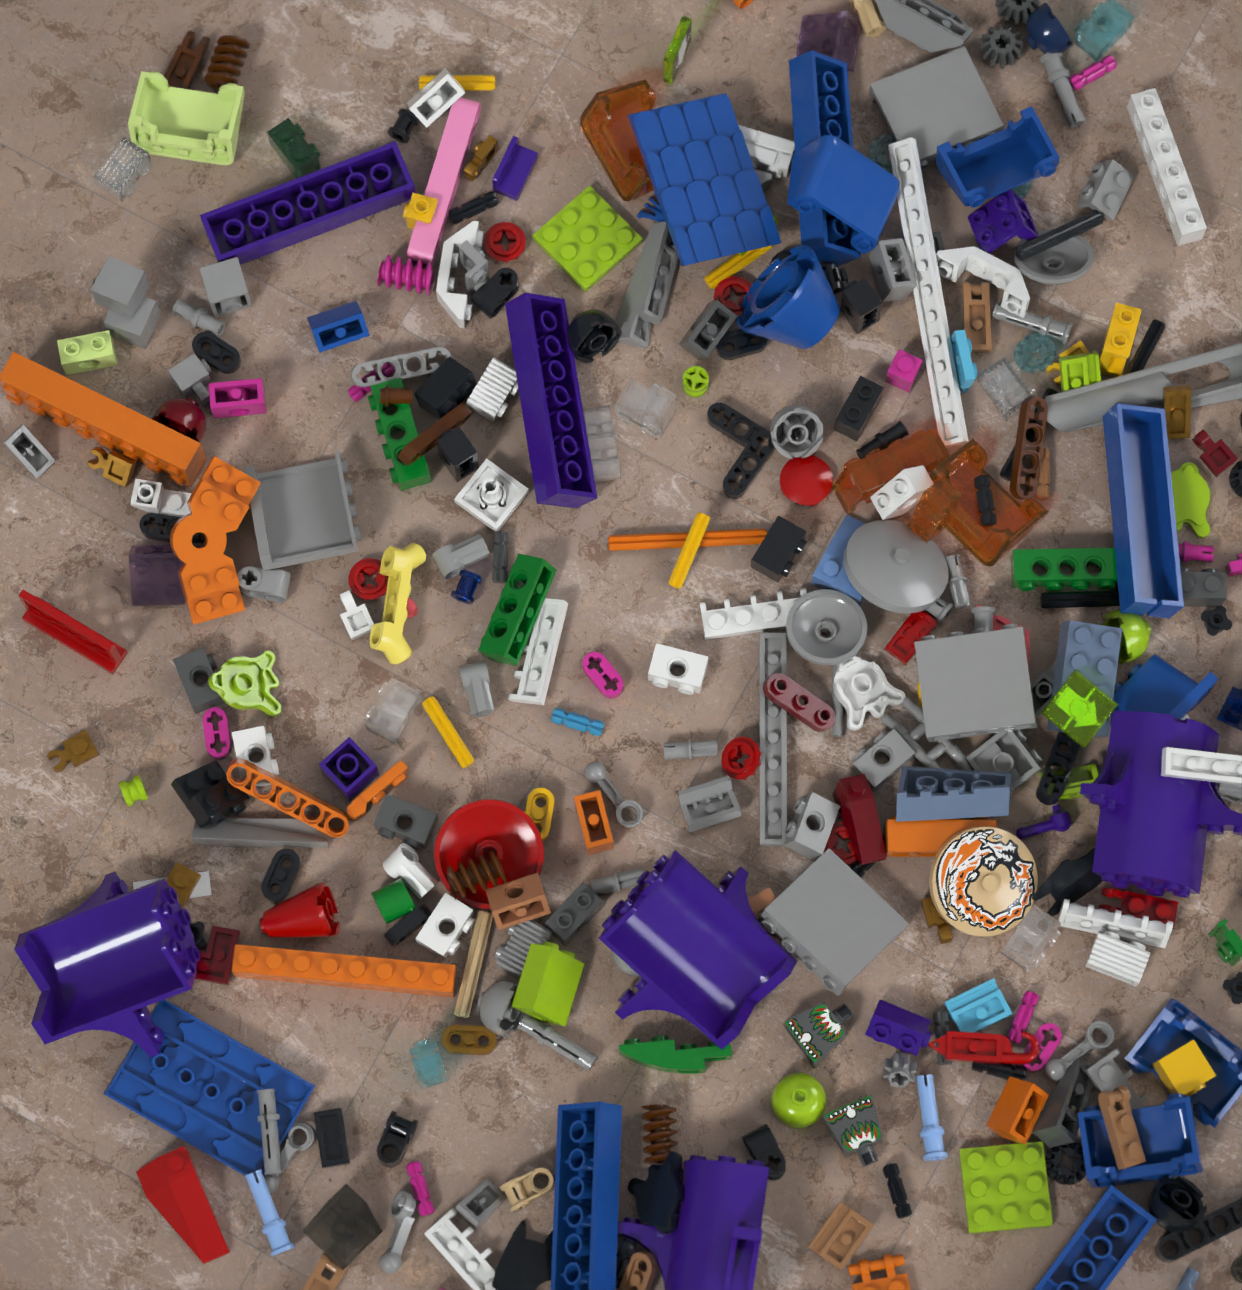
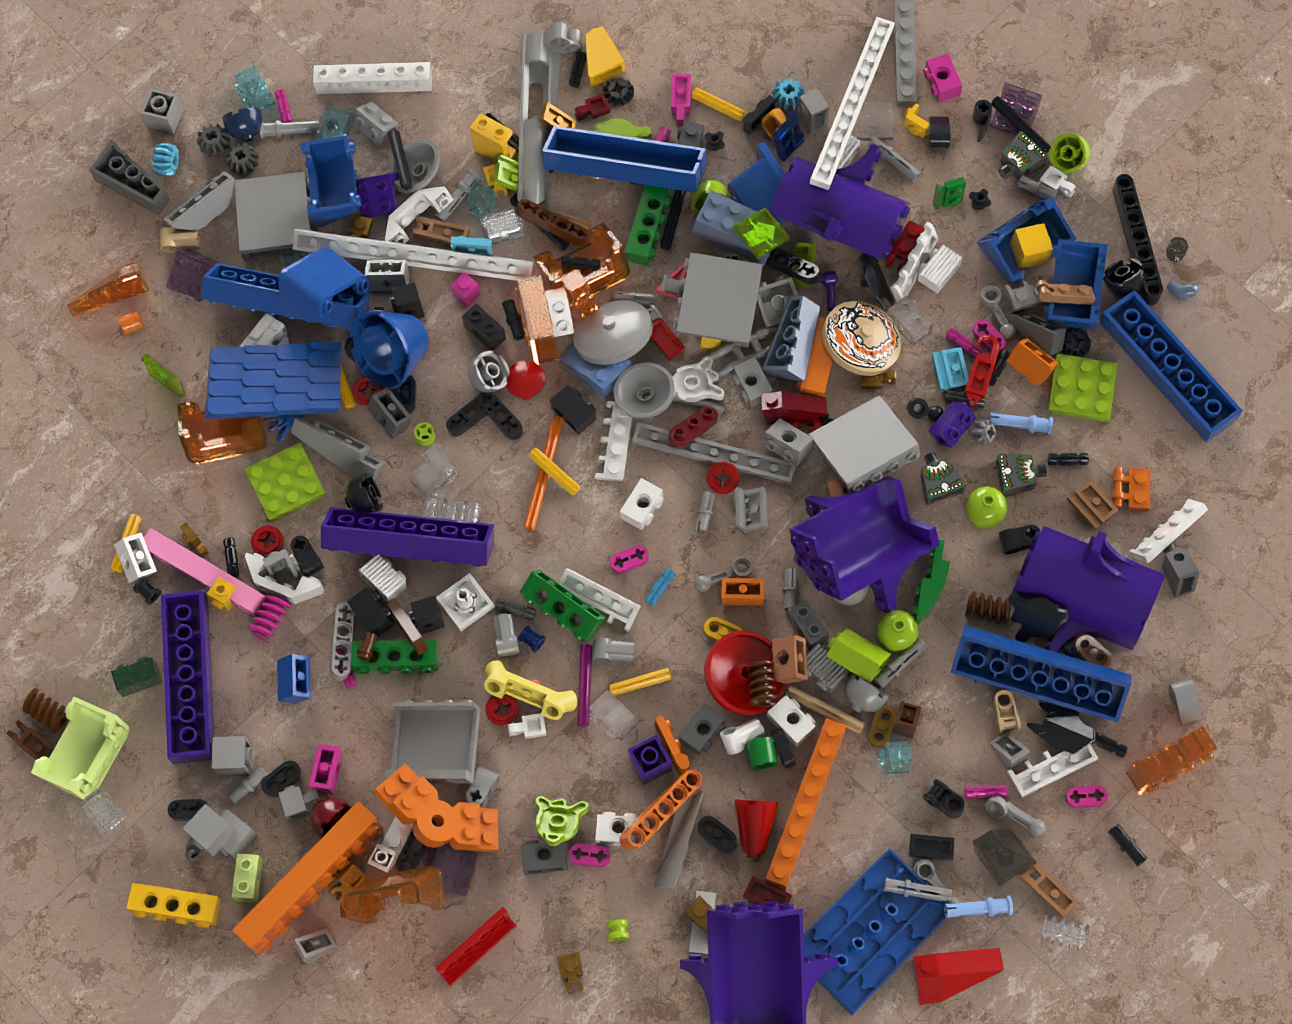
camera: 70 degrees left, 5 degrees down
(29, 243) = (142, 894): none -> yellow brick
(113, 531) = (412, 886): none -> clear orange windscreen
(147, 263) = (185, 804): none -> black beam
(210, 794) = (640, 869): black plate -> none
(427, 666) = (584, 685): none -> magenta axle
(487, 1067) = (906, 719): none -> reddish brown slope
(514, 170) = (212, 519): dark purple panel -> none
(599, 1028) = (897, 631): none -> lime cylinder
(911, 1000) = (933, 412): none -> black plate
(951, 218) = (360, 226): none -> pearl gold plate
(1070, 153) = (337, 119): none -> clear light blue brick

